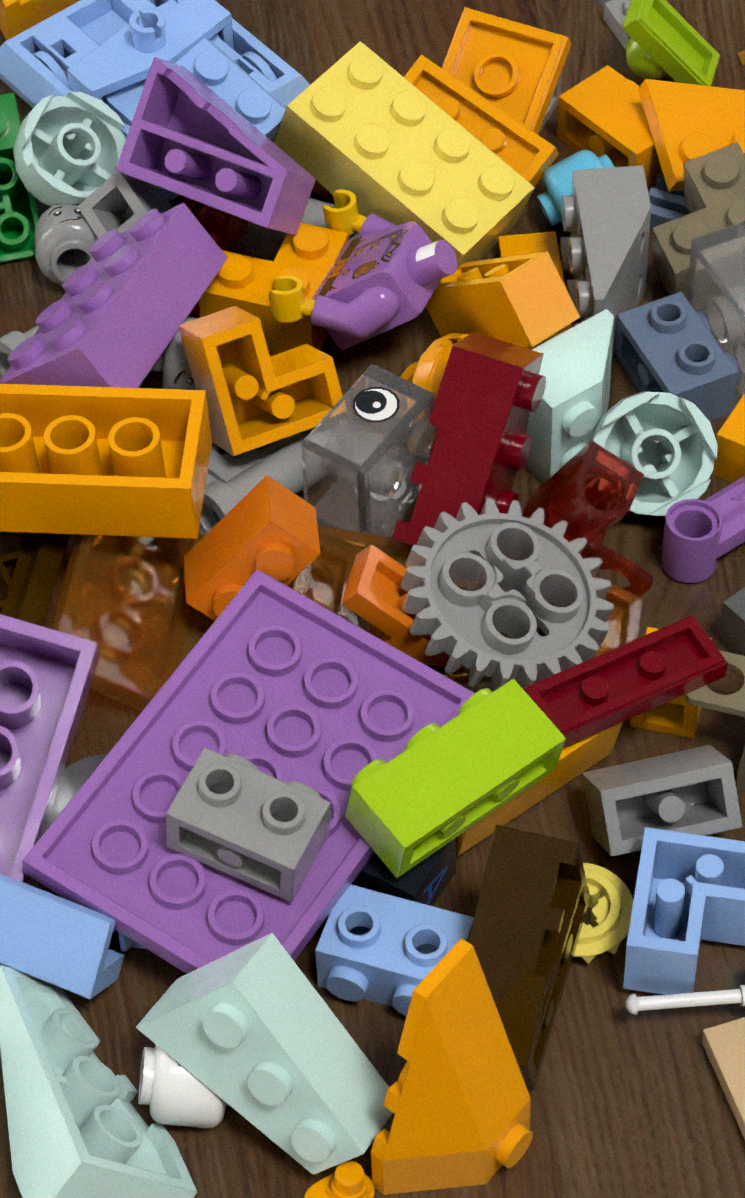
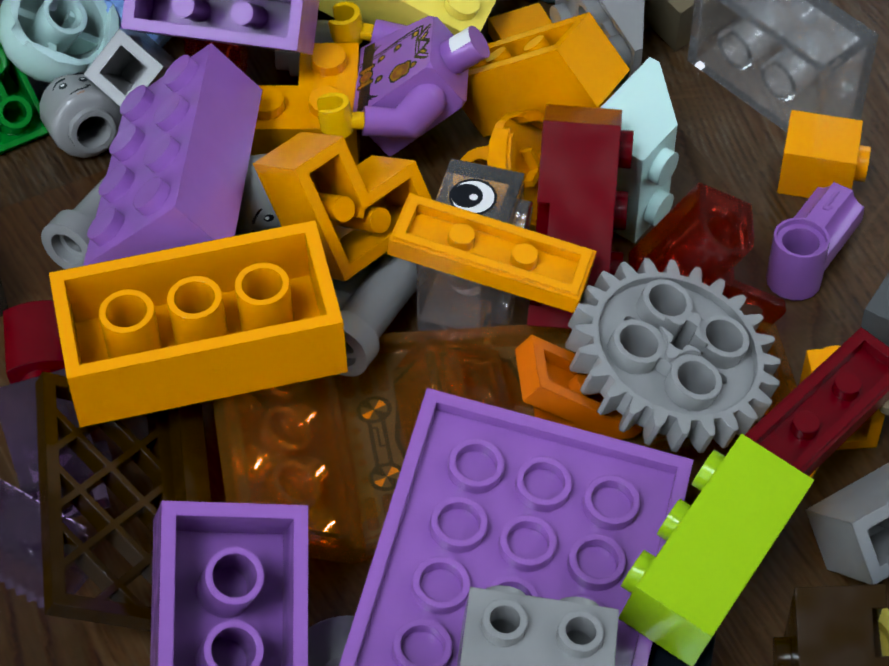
camera: 20 degrees left, 0 degrees up
(263, 532) = (387, 379): orange brick -> none
(366, 460) = (491, 252): none -> light orange tile
(665, 442) = (744, 164): light aqua cylinder -> none
(673, 352) = (714, 98): sand blue brick -> none

